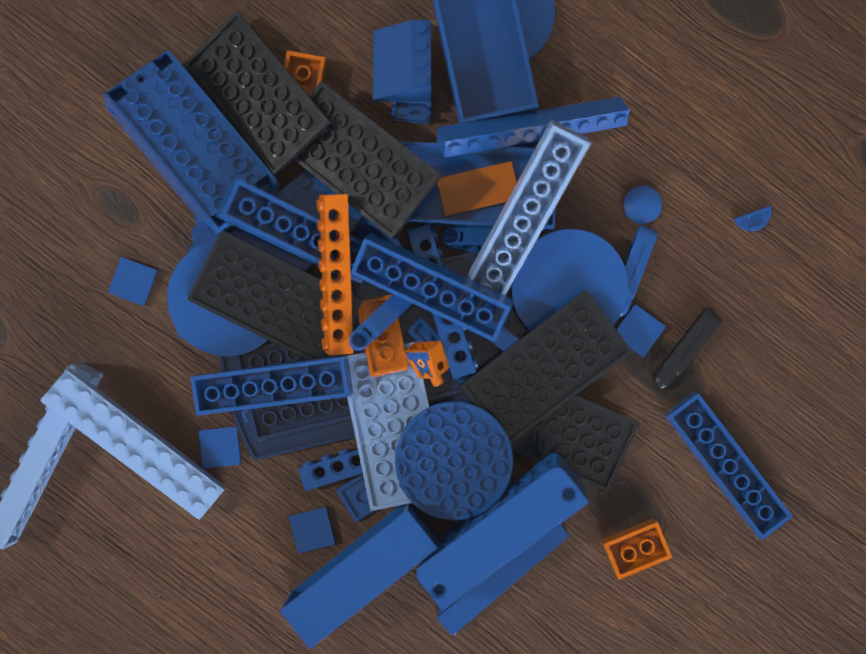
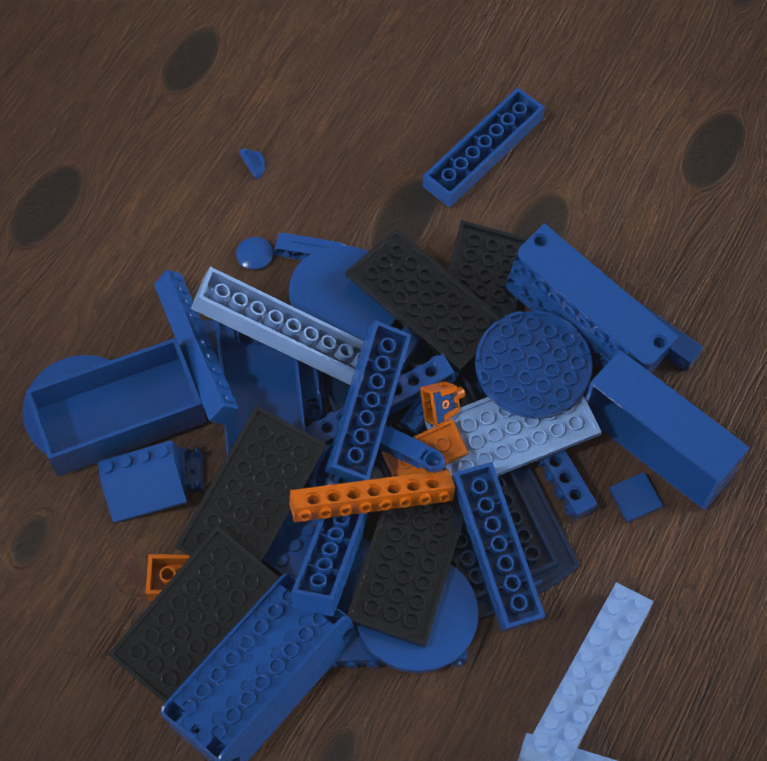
camera: 100 degrees left, 25 degrees down
(132, 281) = (416, 724): blue tile -> none
(220, 447) = (573, 602): blue tile -> none
(355, 497) = (591, 458): blue tile -> none
(476, 188) = (260, 388): orange tile -> none
(636, 548) = (578, 207): orange brick -> none
(640, 330) = (370, 234): blue tile -> none
(686, 349) = (384, 196): black piece -> none

